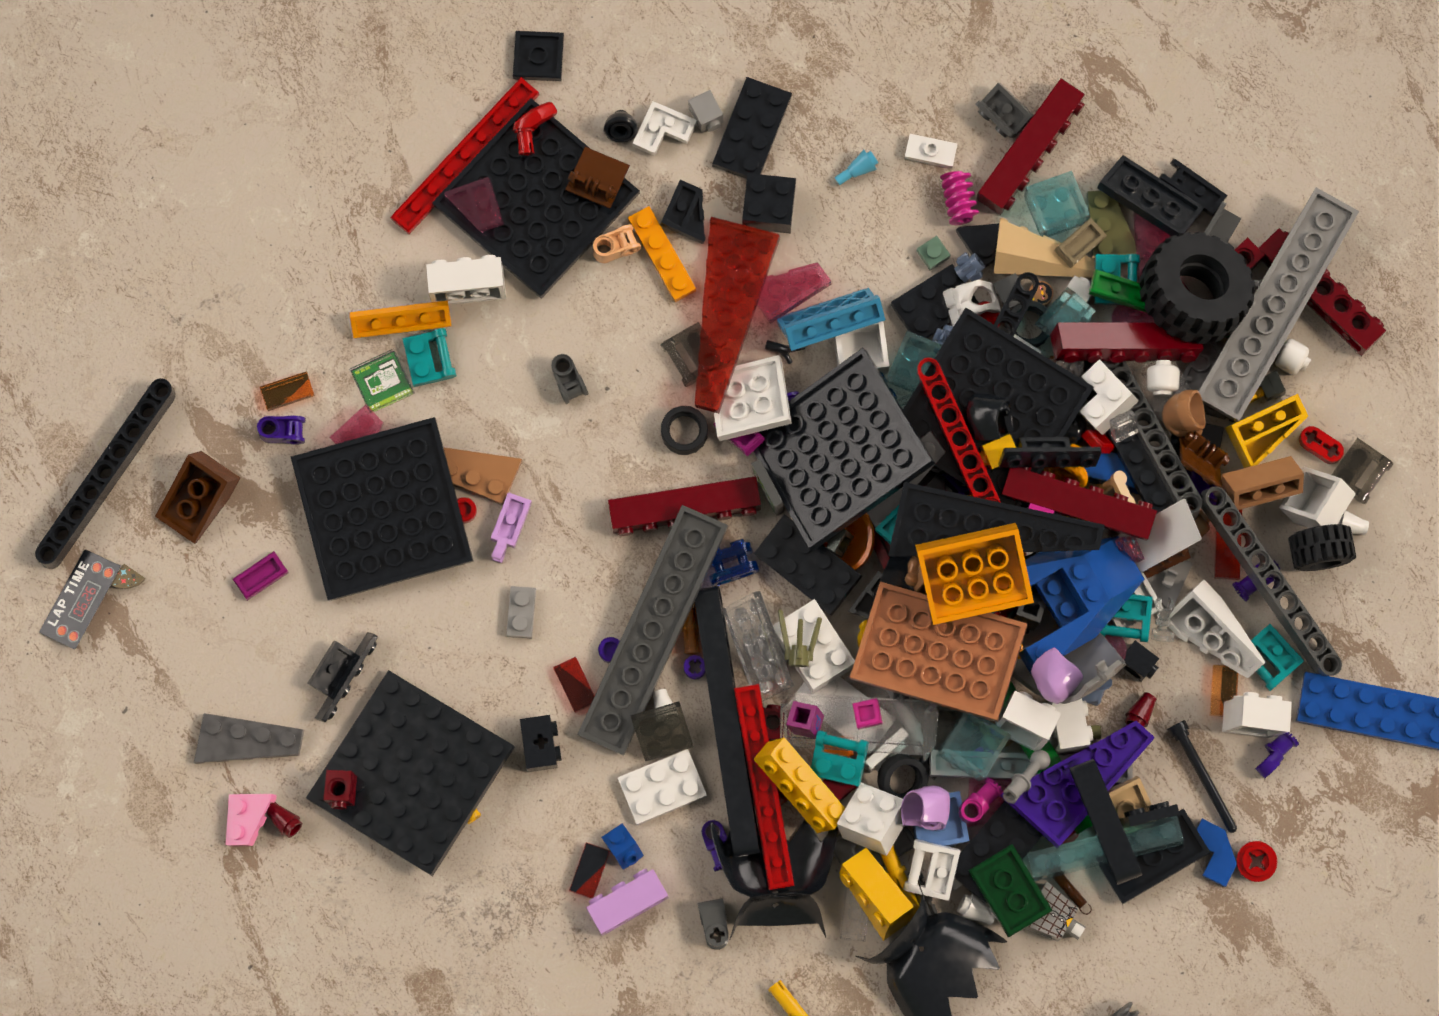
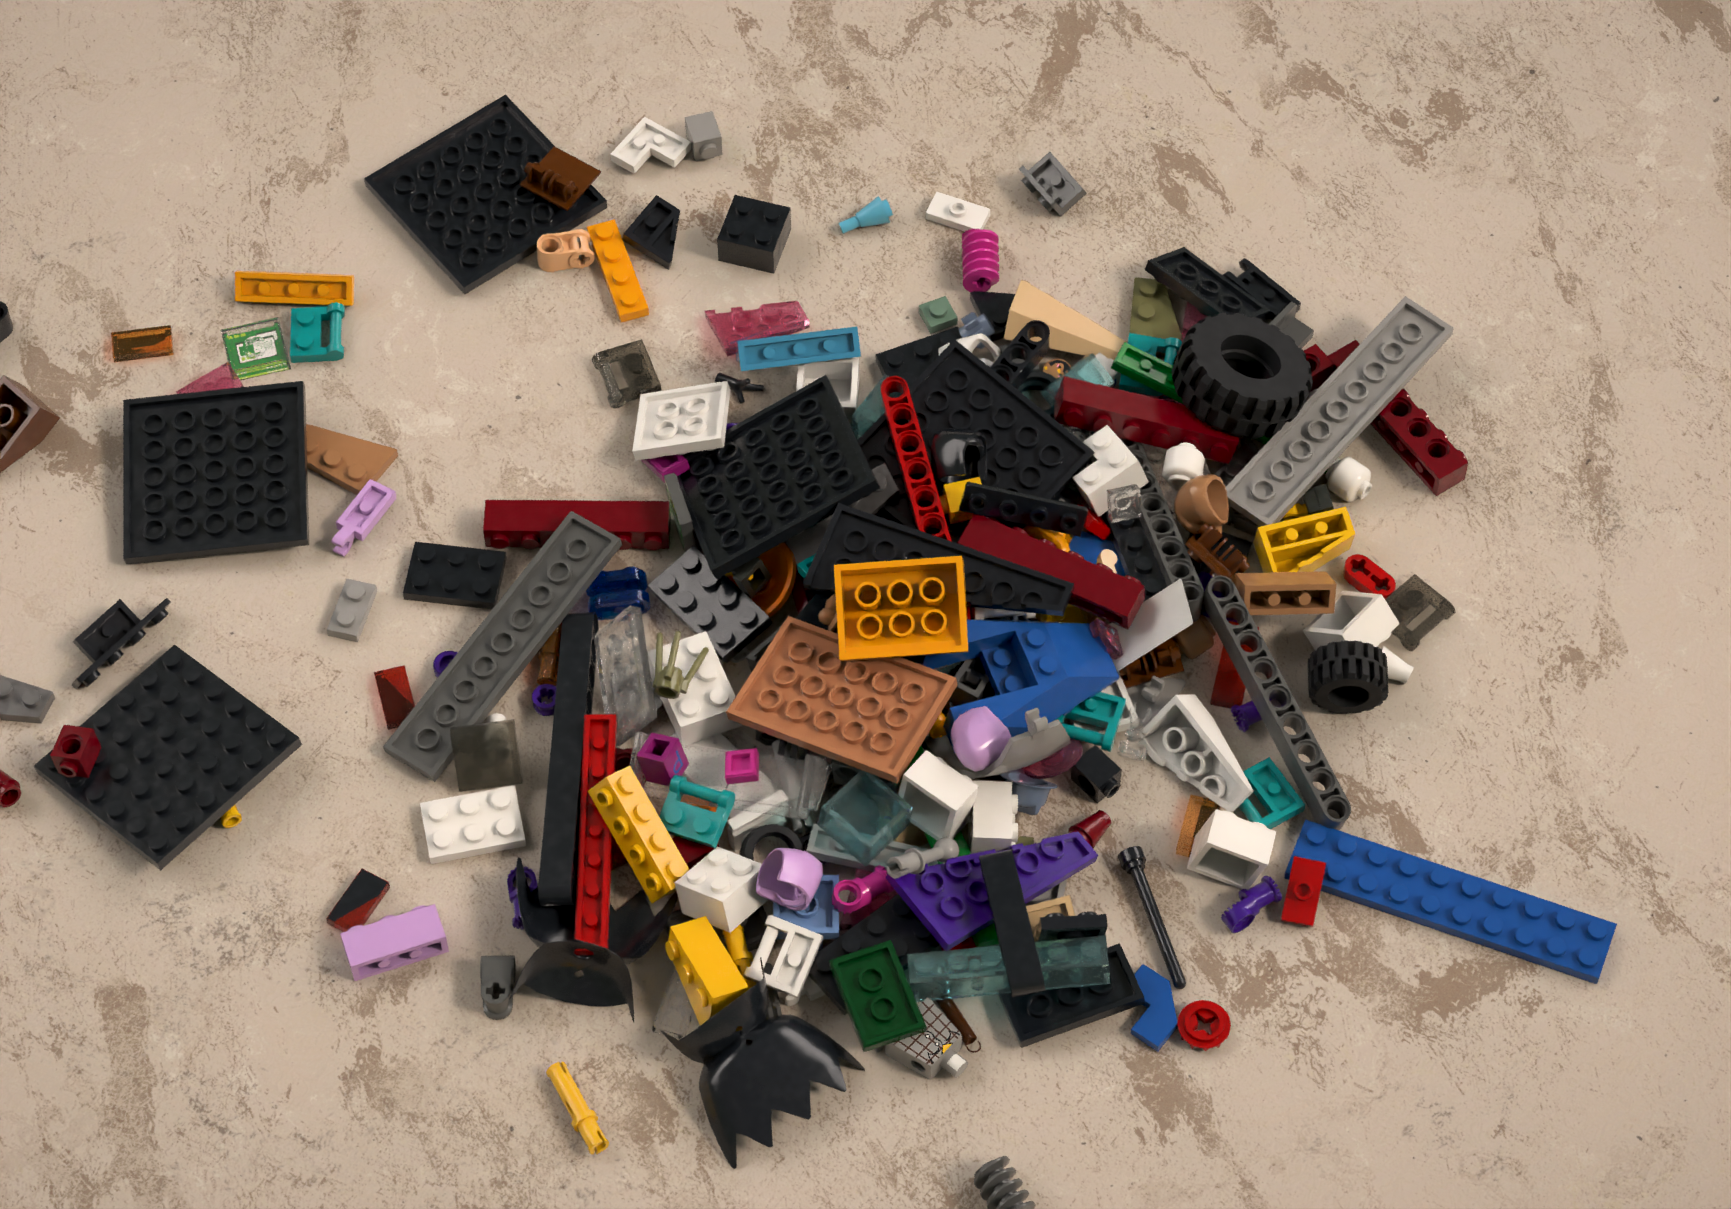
camera: 10 degrees right, 20 degrees down
(260, 575) = (53, 525): magenta tile -> none
(284, 429) = (123, 376): dark purple piece -> none
(419, 203) = (350, 181): red tile -> none
(466, 280) = (381, 255): white brick -> none
(468, 509) = (317, 494): red tile -> none
(477, 204) = (414, 182): clear pink wing -> none
(528, 123) = (495, 112): red arm -> none
(532, 730) = (334, 749): black brick -> none
(538, 55) = (526, 60): black tile -> none
(569, 382) = (473, 377): dark grey piece -> none
(595, 566) = (454, 575): none -> black plate
(620, 127) = (600, 136): black brick -> none
(622, 846) = (406, 881): blue bracket -> none
(684, 449) = (597, 429): black tyre -> none
(734, 281) = (692, 307): clear red wing -> none
(752, 128) = (754, 161): black plate -> none
(975, 909) = (832, 1021): white cone -> none
(1030, 147) = (1076, 223): dark red brick -> none
(1056, 204) = (1094, 280): clear light blue piece -> none
(1080, 242) = (1113, 321): dark tan tile -> none
(1314, 736) = (1303, 891): none -> red plate

